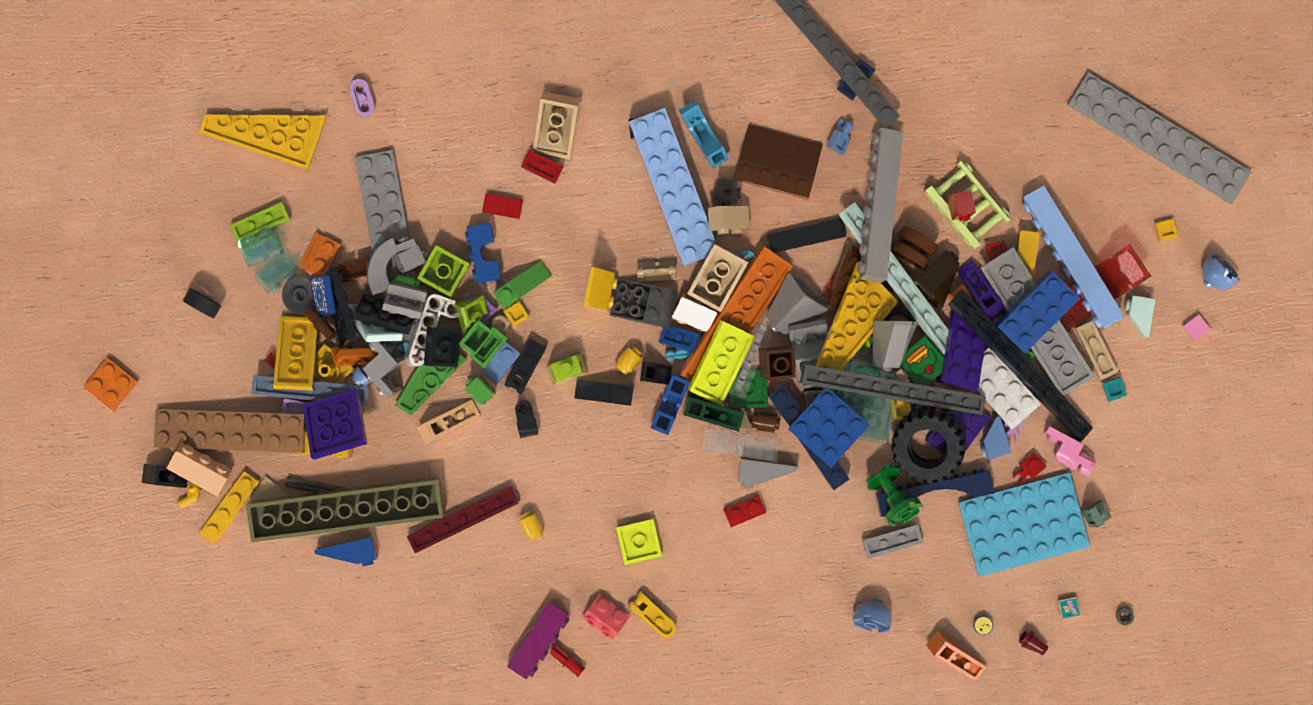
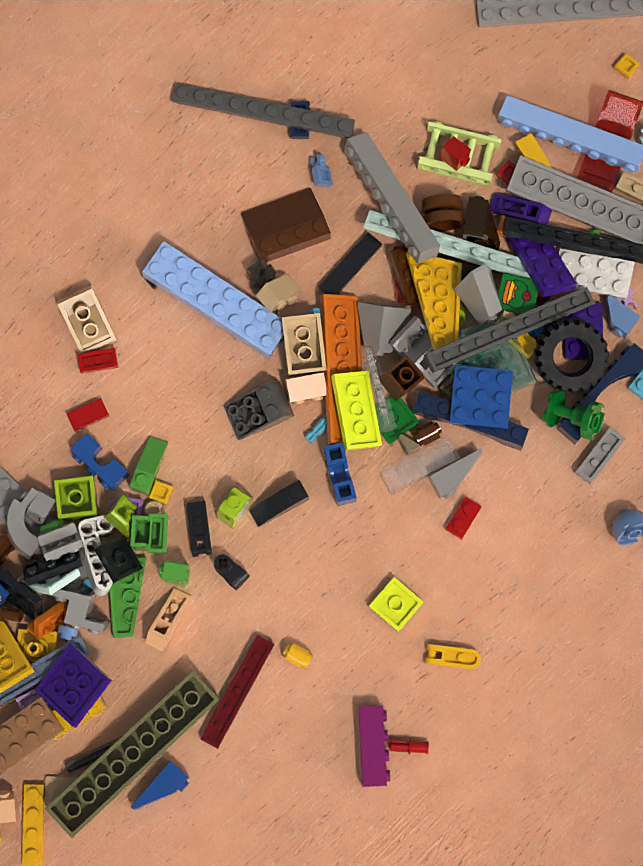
camera: 35 degrees left, 10 degrees down
(501, 362) = (177, 539): medium blue slope -> none
(599, 289) = (215, 422): yellow slope -> none
(605, 616) = (414, 686): coral bracket -> none
(629, 360) = (280, 463): yellow brick -> none
(655, 373) = (308, 458): black slope -> none
(656, 271) = (251, 378): tan hinge -> none
(680, 339) = (309, 416): blue plate -> none
(703, 134) = (209, 245): dark azure arch -> none
(713, 413) = (379, 456): dark green slope -> none
(1037, 311) = (577, 189): blue brick -> none

